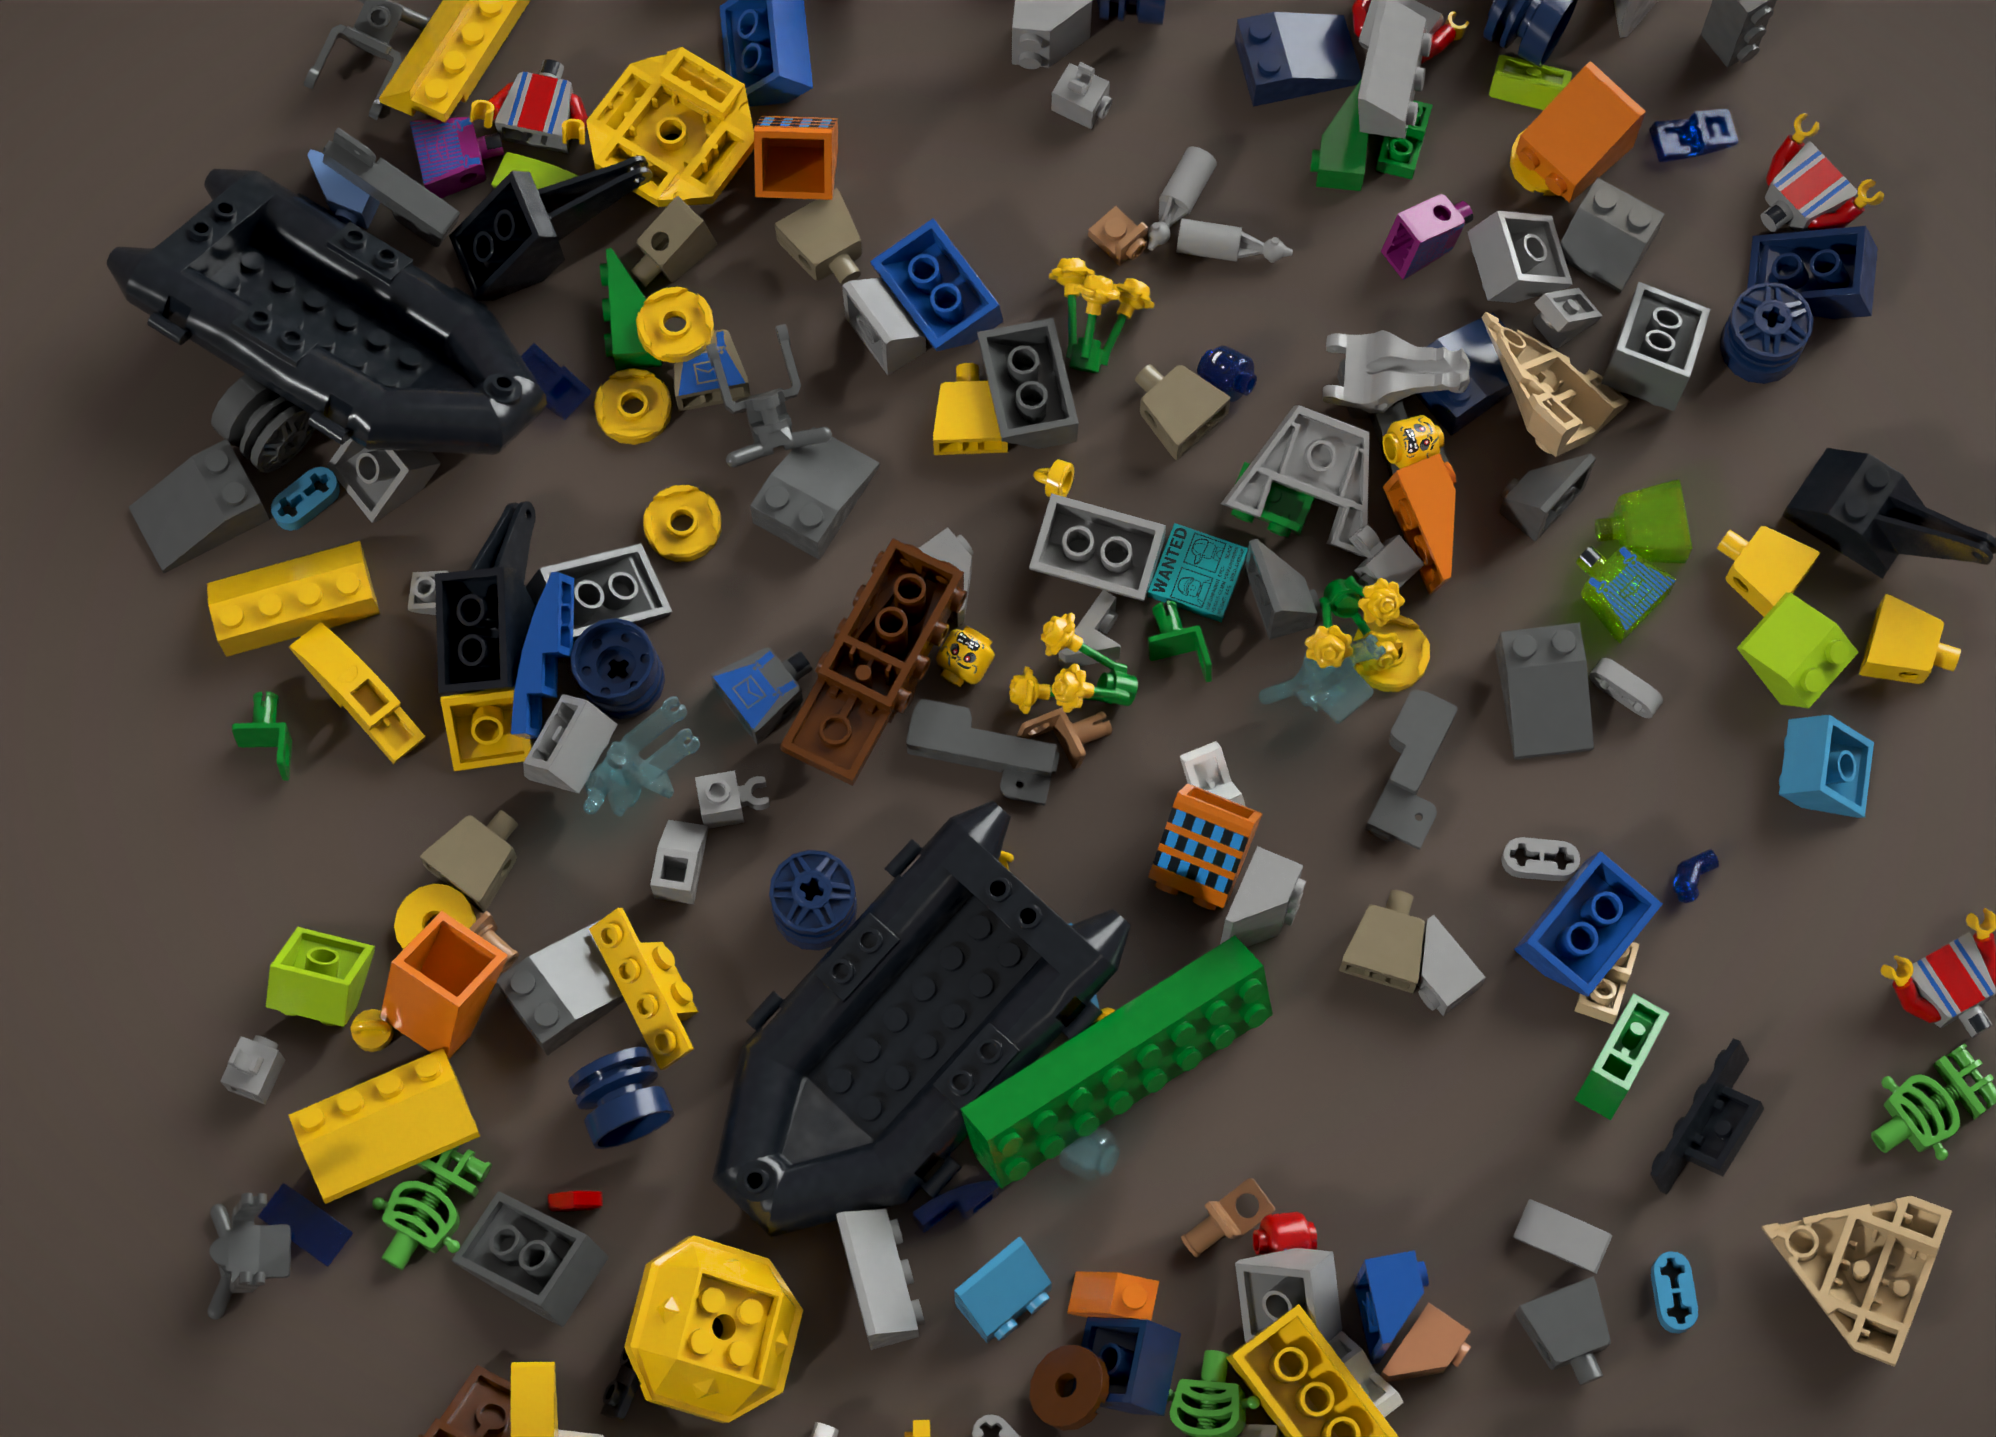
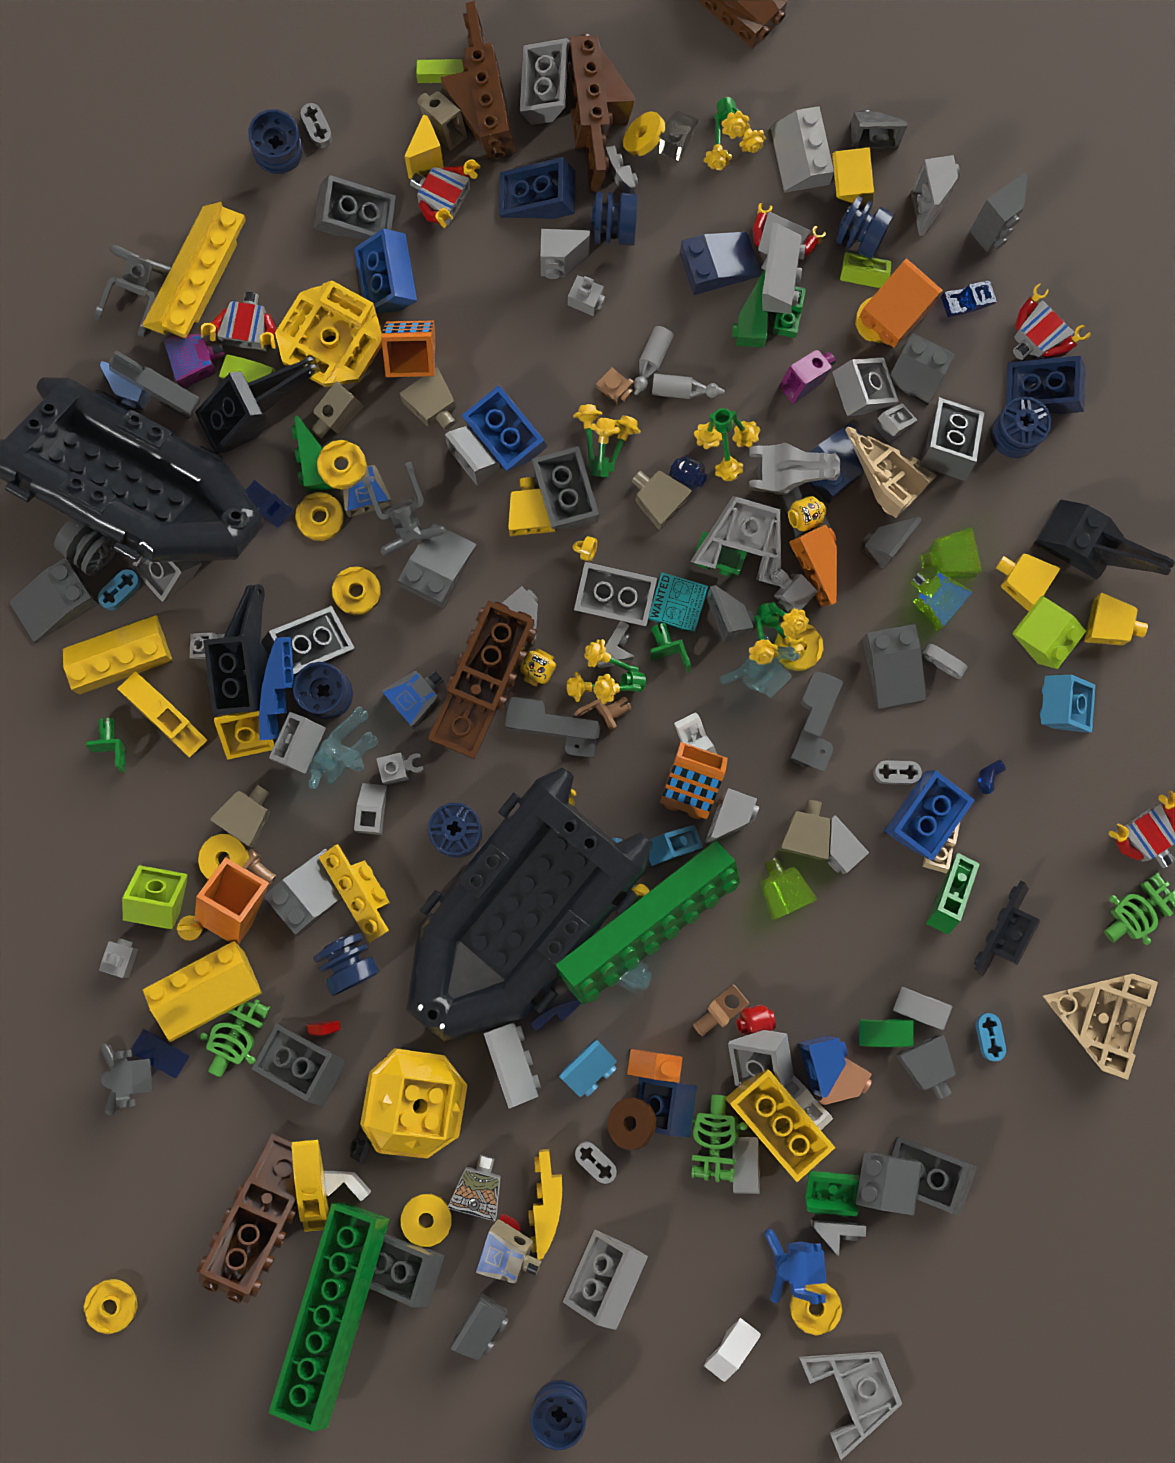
camera: 10 degrees left, 10 degrees up
(1164, 947) = (674, 844): none -> dark azure slope
(1266, 319) = (716, 430): none -> yellow plant
(1345, 1032) = (784, 890): none -> clear neon green torso
(1500, 1271) = (886, 1033): none -> green slope

